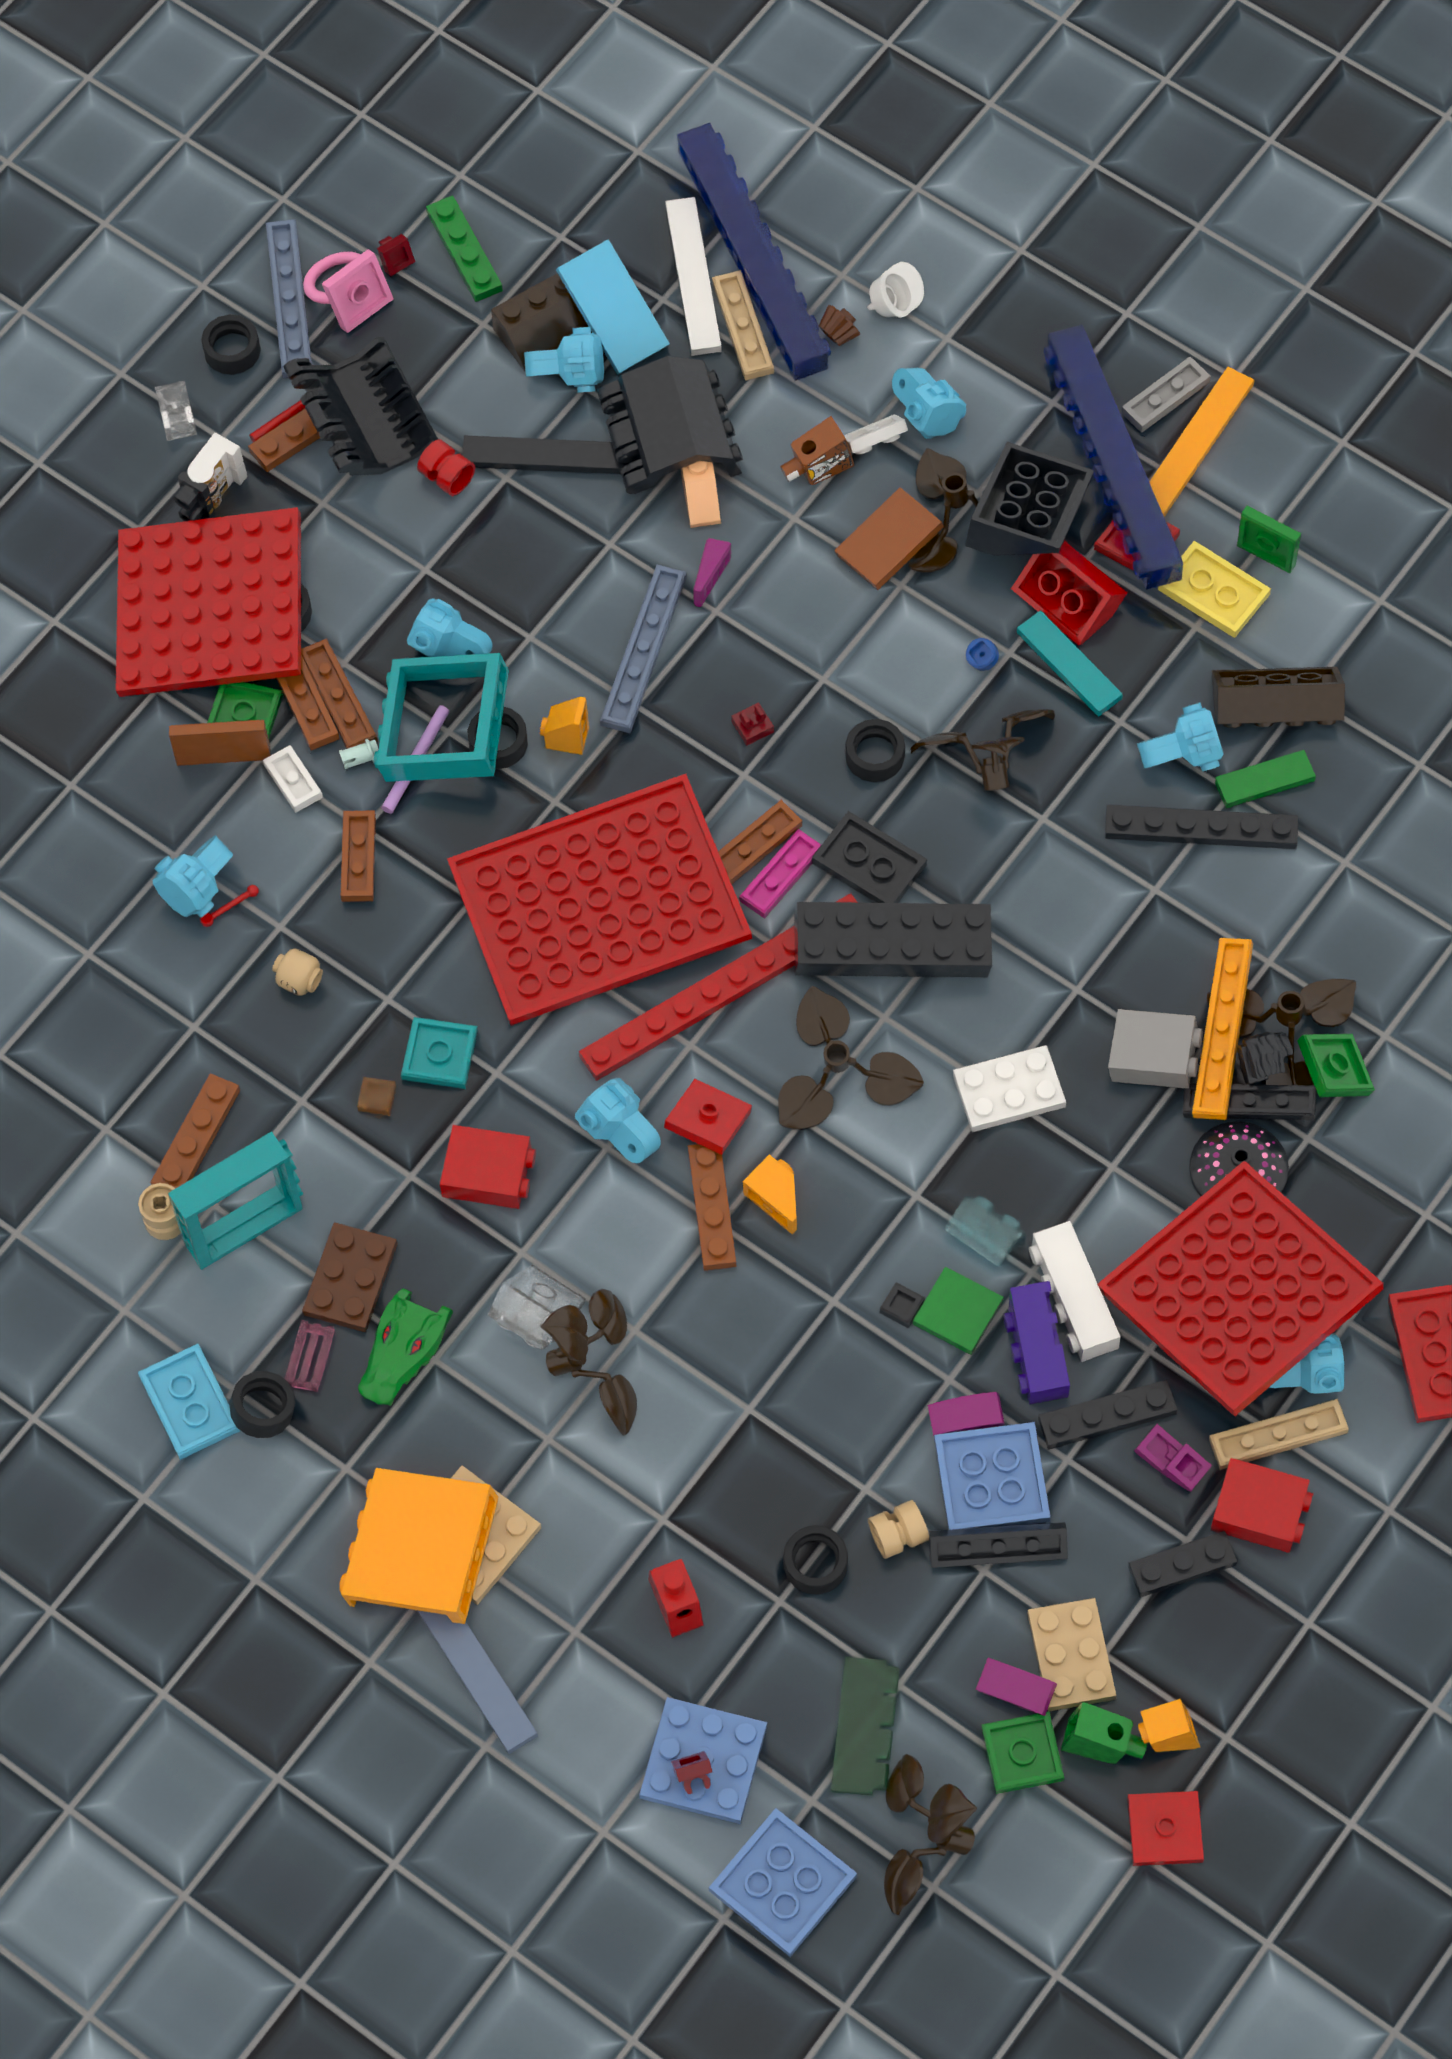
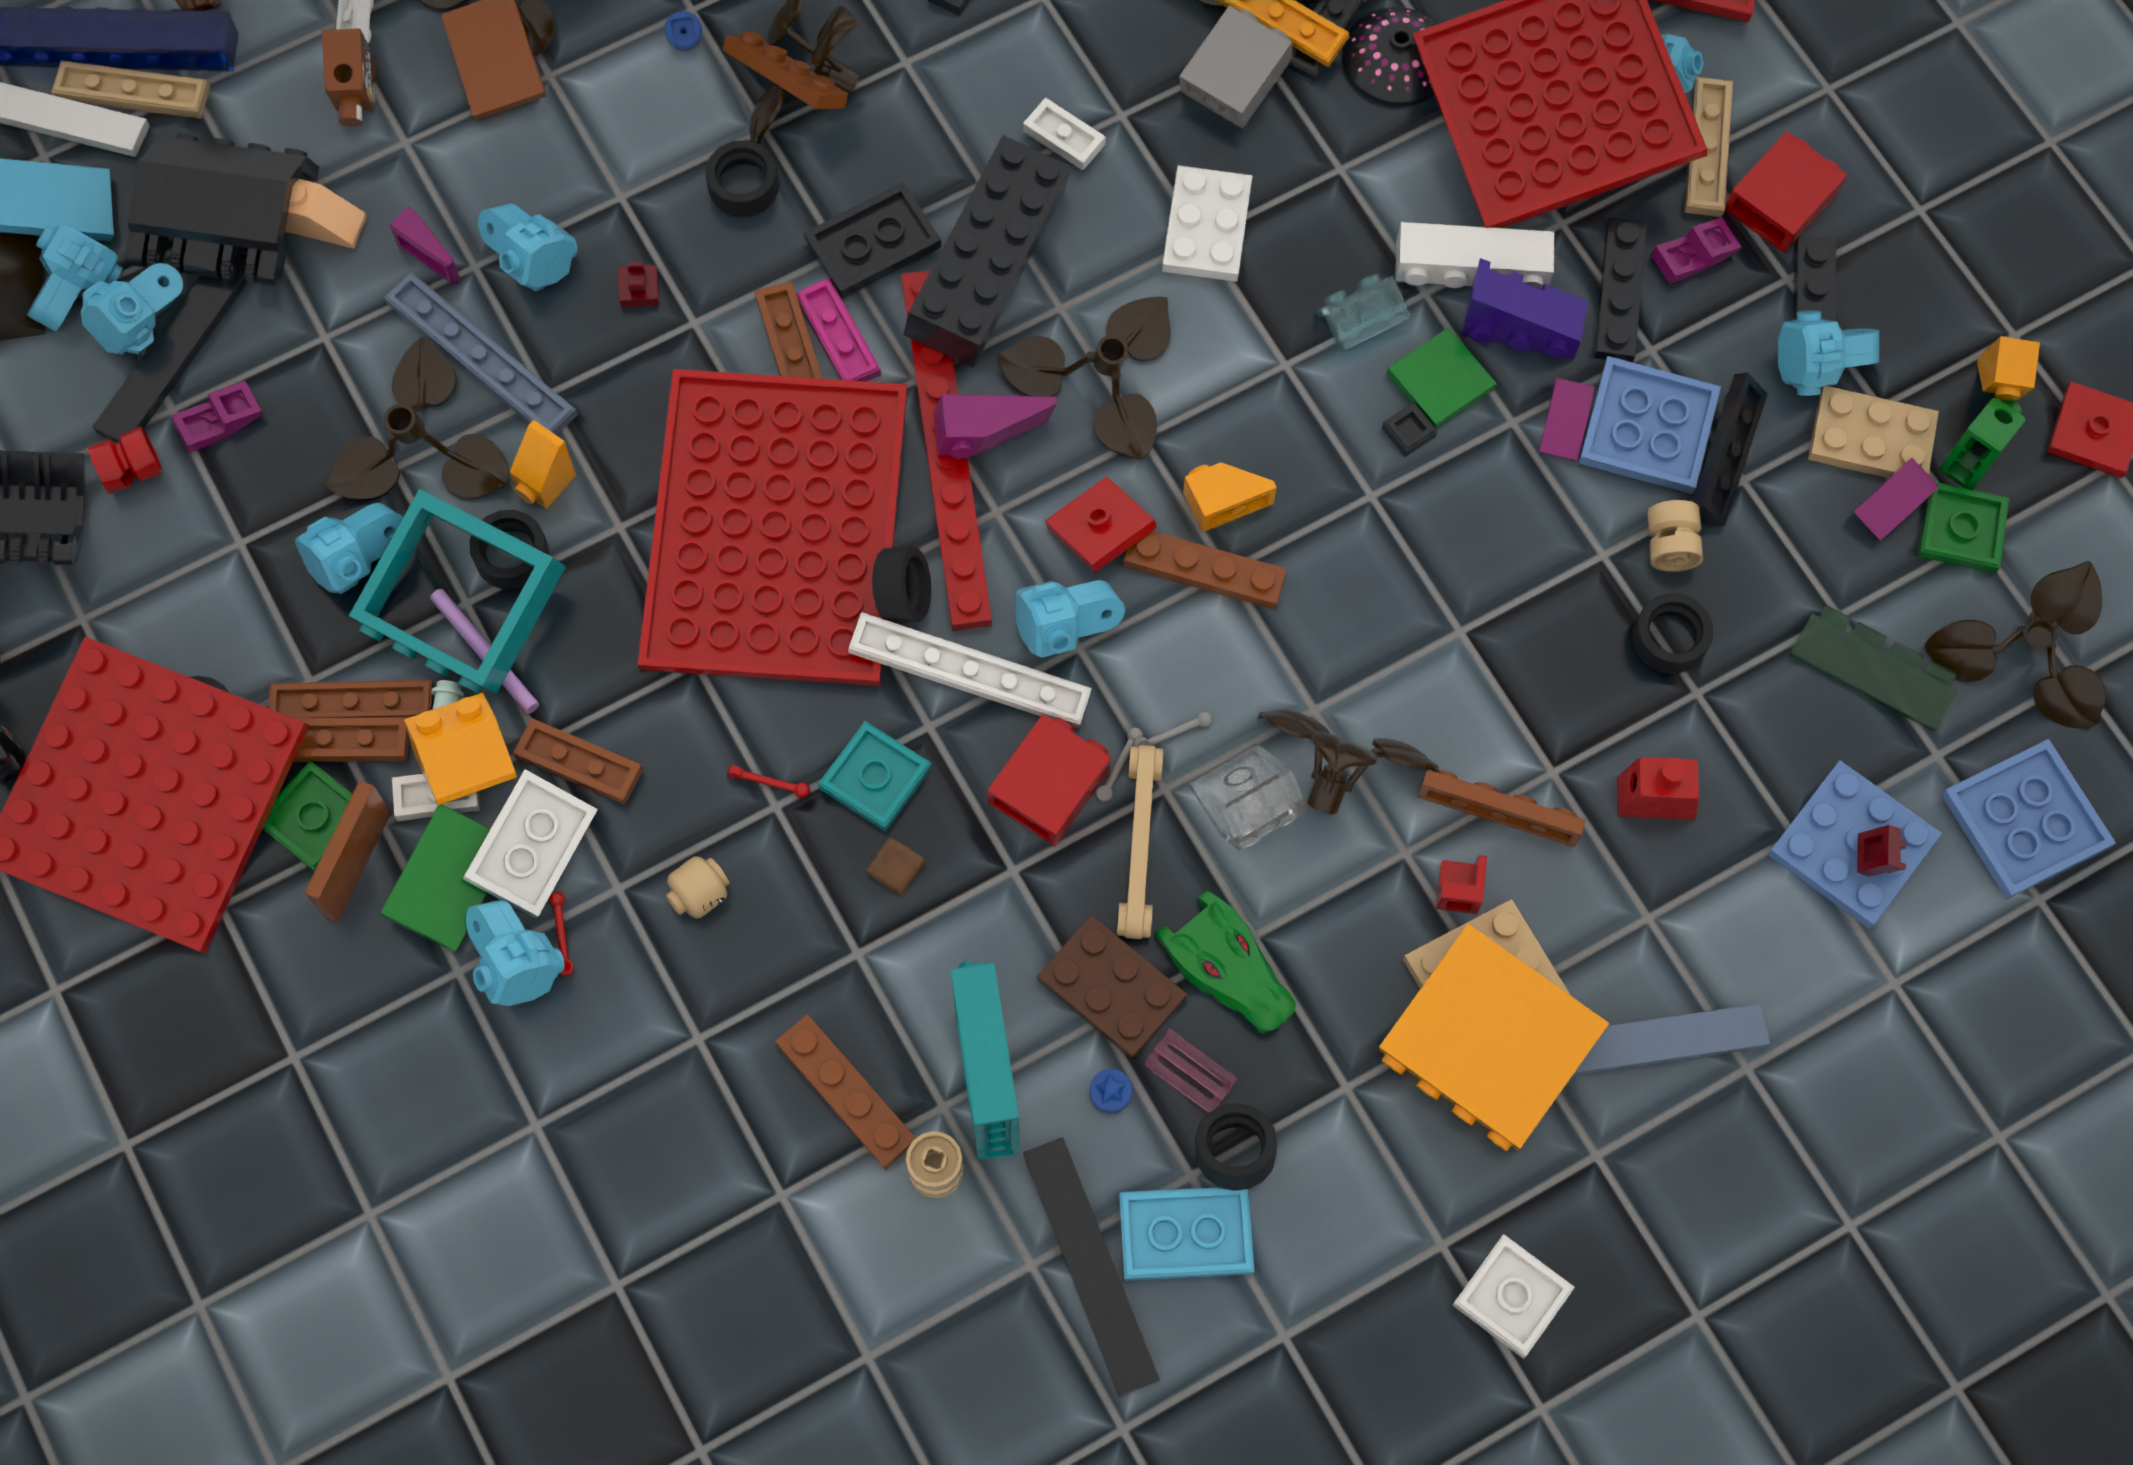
camera: 70 degrees left, 5 degrees up
(137, 1347) = (1091, 1267): none -> black tile
(234, 812) = (430, 890): none -> green tile
(236, 1641) = (1513, 1296): none -> white tile
(271, 1308) = (1111, 1091): none -> blue tile
(281, 852) = (530, 844): none -> white plate
(326, 774) = (460, 748): none -> light orange slope
(406, 1010) = (801, 789): none -> red hinge
(498, 1212) = (1104, 792): none -> light grey hinge
(510, 508) = (222, 416): none -> magenta slope
(519, 615) = (421, 378): none -> dark brown plant
(526, 1228) = (1136, 916): none -> tan piece
(535, 1485) = (1461, 885): none -> red panel
(546, 1077) = (968, 670): none -> white tile
(547, 1221) = (1203, 719): none -> light grey hinge
(556, 409) = (125, 312): none -> medium azure piece
(591, 1016) = (901, 584): none -> black tyre
(612, 1501) = (1515, 812): none -> dark orange plate
(737, 636) = (529, 247): none -> medium azure piece
(745, 998) = (979, 422): none -> magenta slope
(972, 728) = (784, 71): none -> dark orange plate
(1031, 953) = (1064, 134): none -> white plate
(1116, 1579) = (1818, 351): none -> medium azure piece

